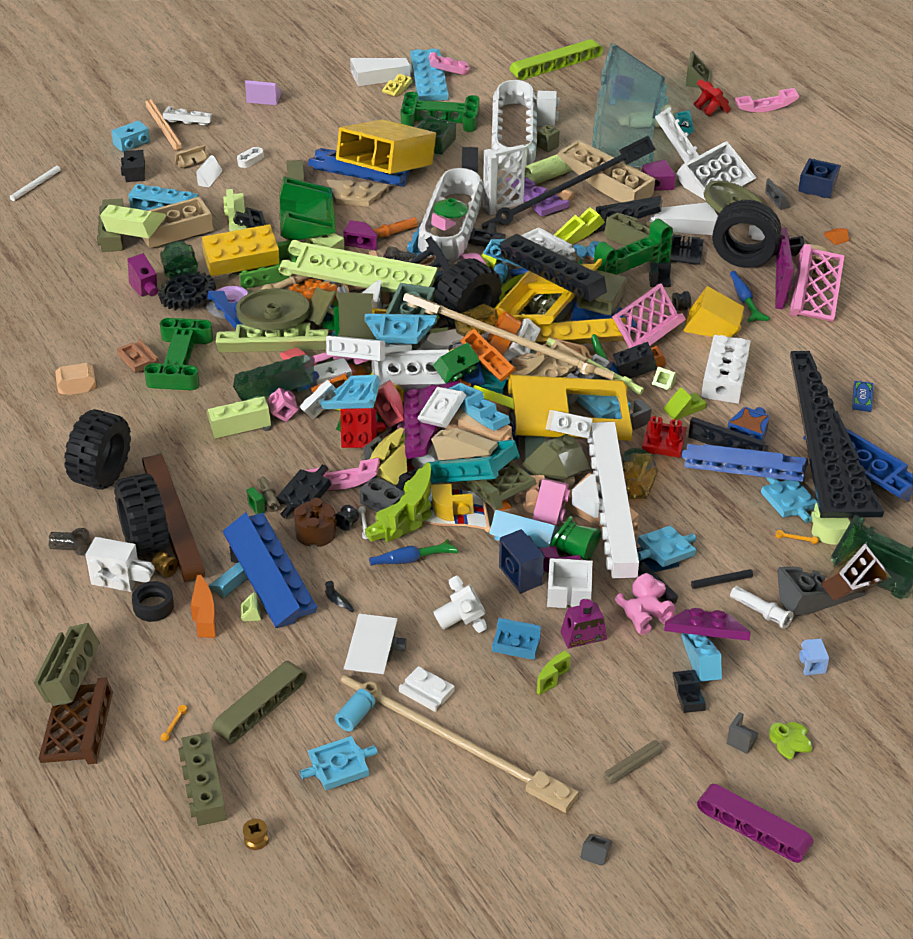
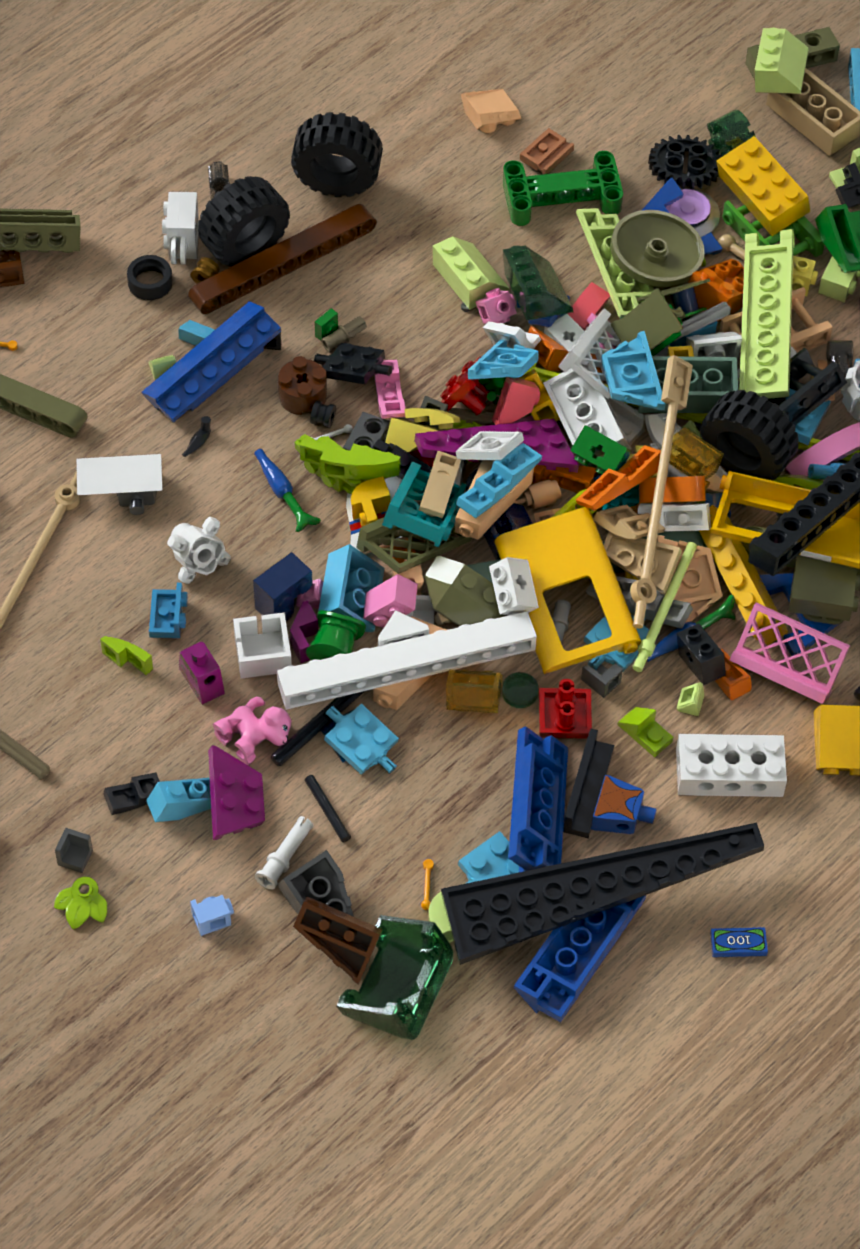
camera: 75 degrees right, 15 degrees up
(142, 275) = (689, 111): magenta torso -> none
(203, 609) = (150, 322): orange slope -> none
(354, 710) = (33, 486): medium azure piece -> none
(426, 688) = (84, 546): white plate -> none

